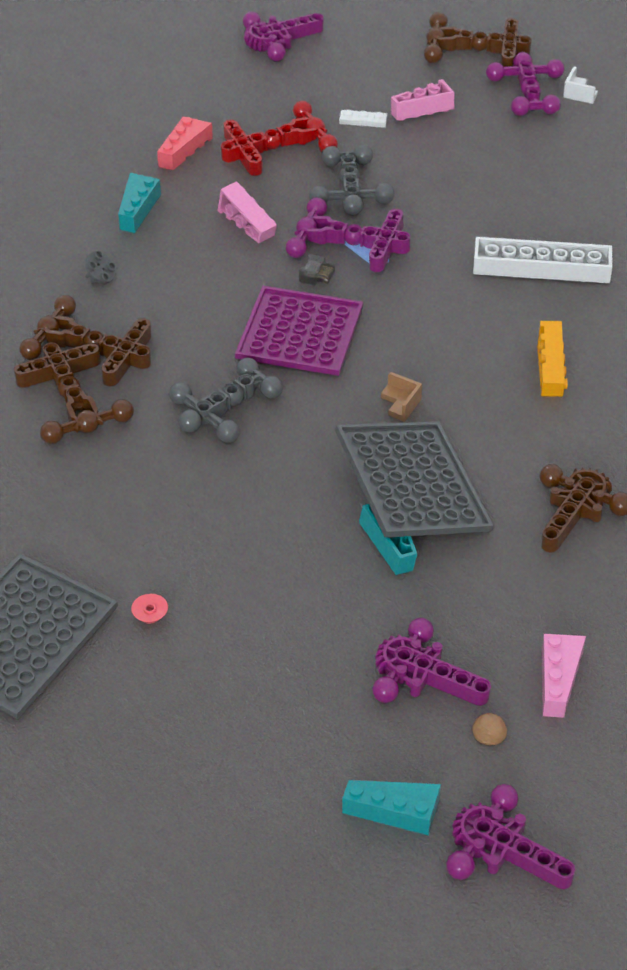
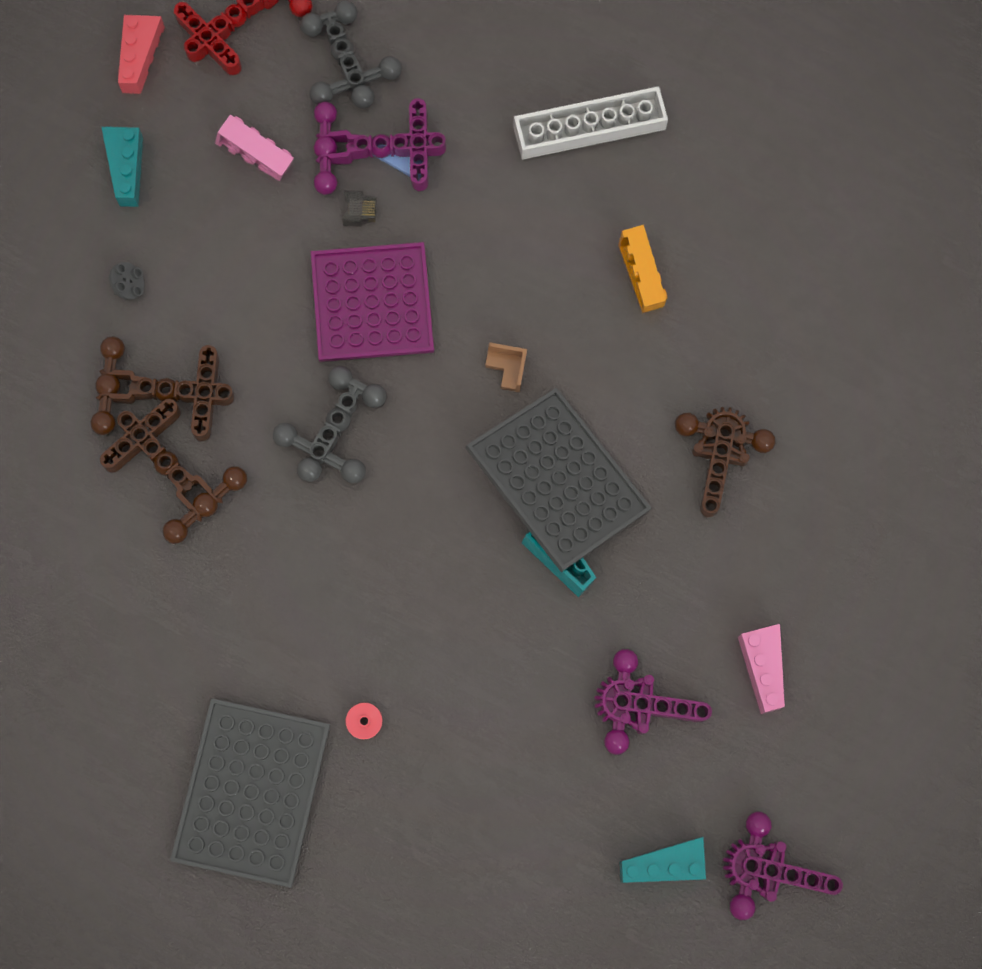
camera: 25 degrees left, 30 degrees up
(489, 729) = (720, 748): medium nougat piece -> none

